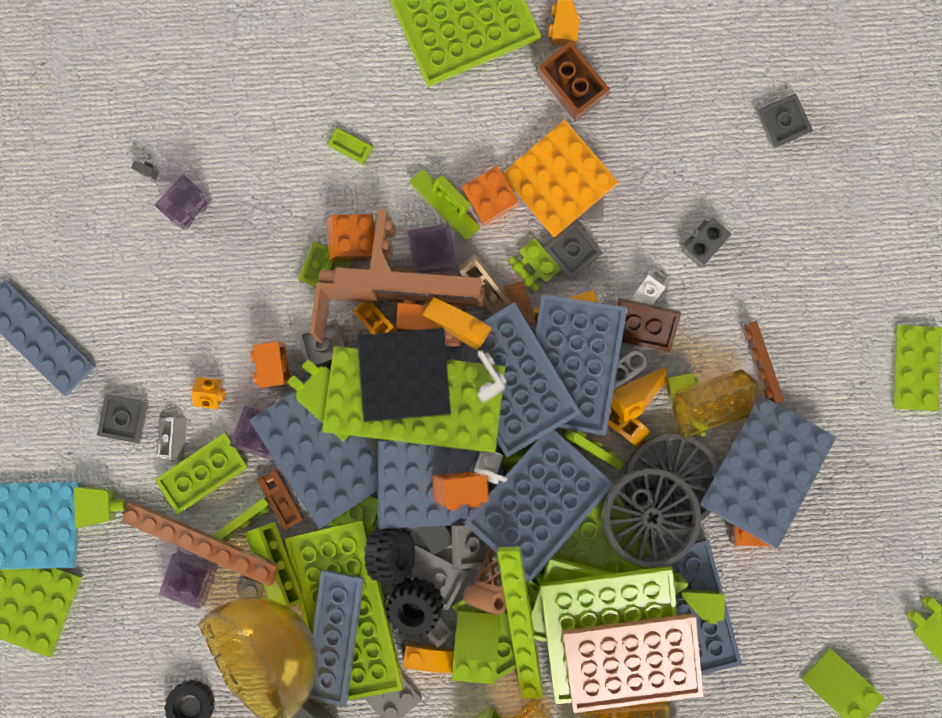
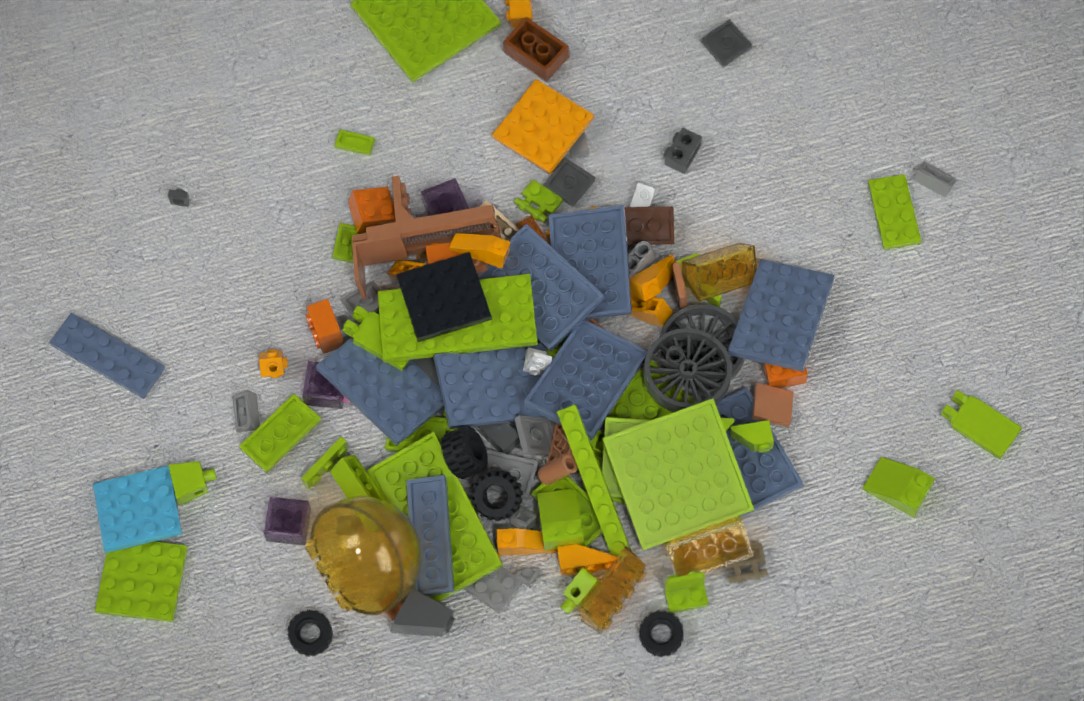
camera: 15 degrees left, 20 degrees down
(122, 418) = (199, 403): dark grey plate -> none
(183, 202) = (219, 213): clear purple brick -> none
(200, 543) = (290, 485): nougat plate -> none
(280, 499) = (356, 440): dark orange plate -> none
(429, 693) = (528, 575): none -> light grey tile
(446, 202) = (449, 165): lime bracket -> none
(460, 489) = (513, 377): orange brick -> none
(489, 390) = (522, 289): white bracket -> none
(490, 196) = (486, 154): orange brick -> none
(494, 696) = (575, 557): none -> light orange slope
(594, 448) = (625, 331): lime plate -> none
(633, 663) = (701, 490): plate -> none
(665, 410) = (679, 286): none -> nougat tile
(731, 567) = (772, 404): none -> nougat tile
(760, 355) = (753, 228): dark orange plate -> none

